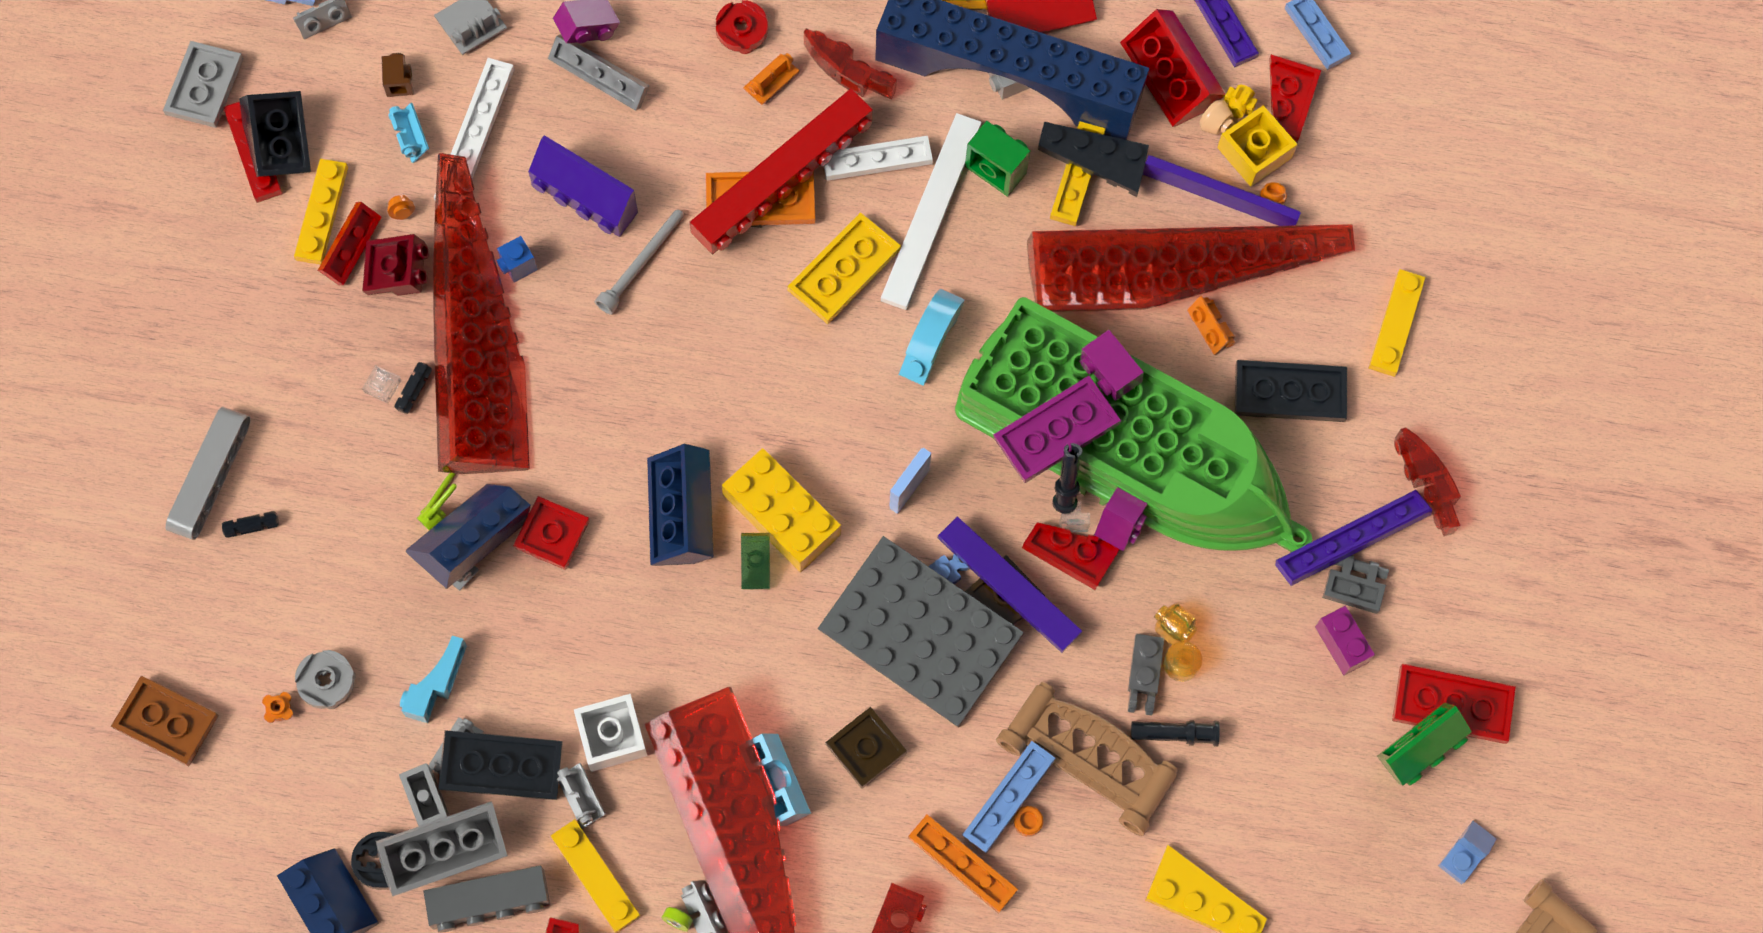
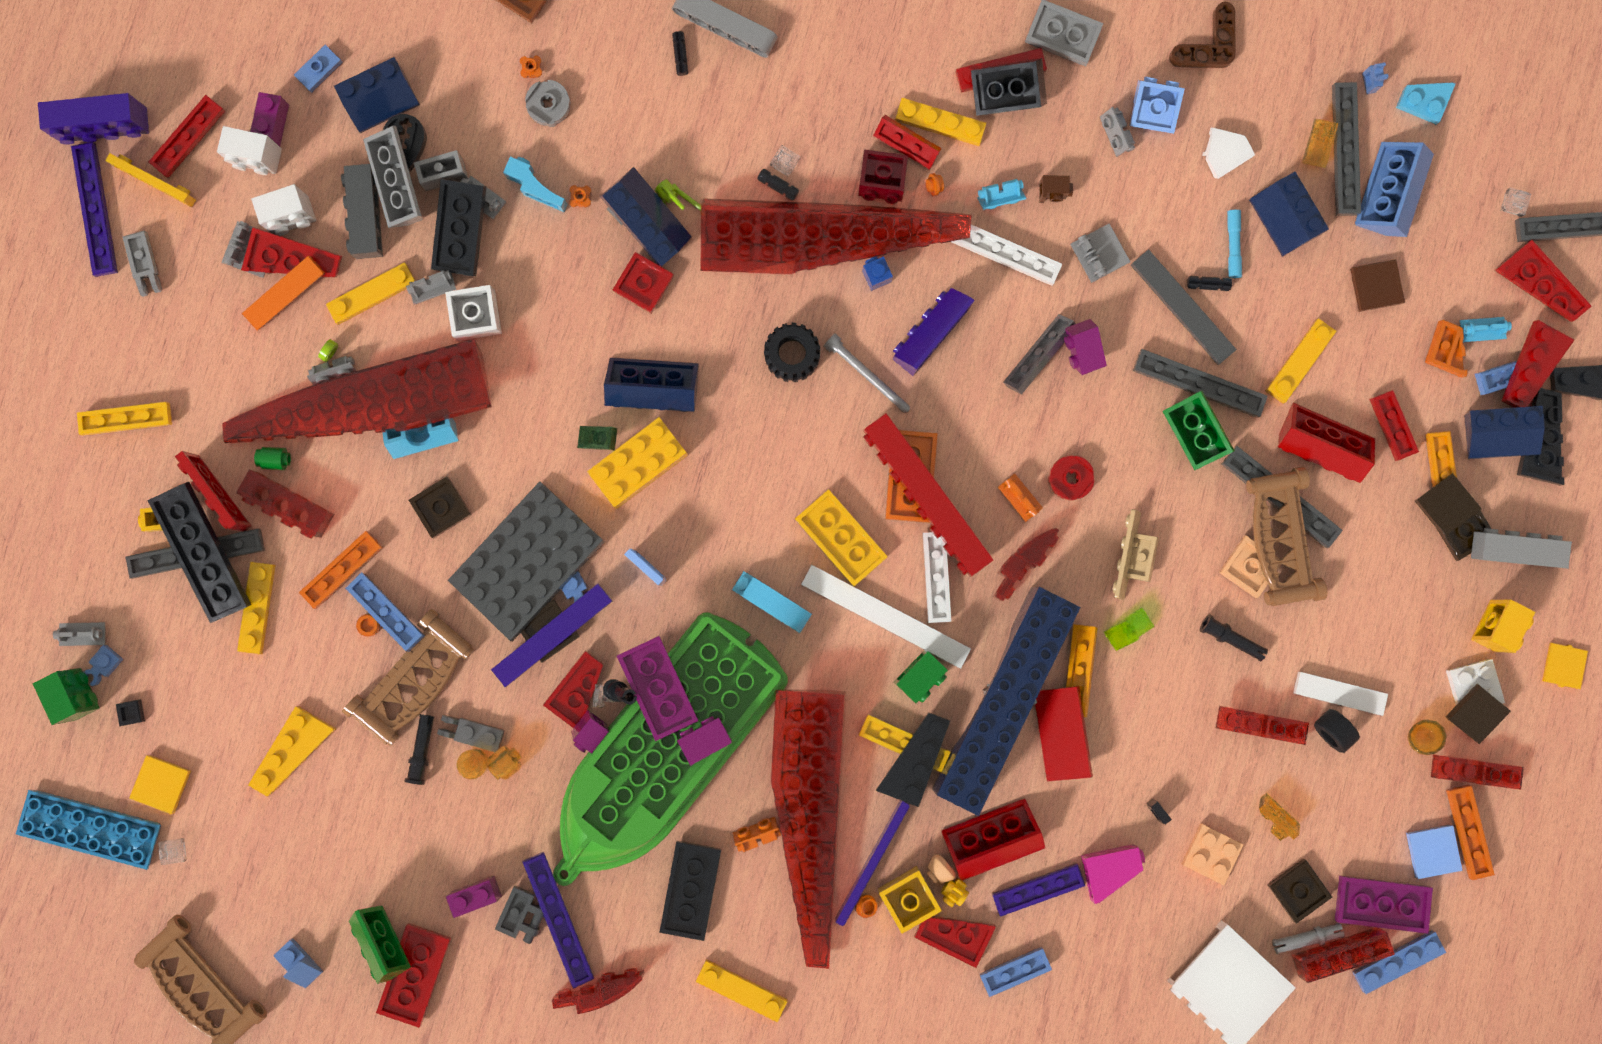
camera: 95 degrees right, 15 degrees up
(439, 618) = (580, 202): none -> orange plate
(618, 324) = (792, 333): none -> black tyre

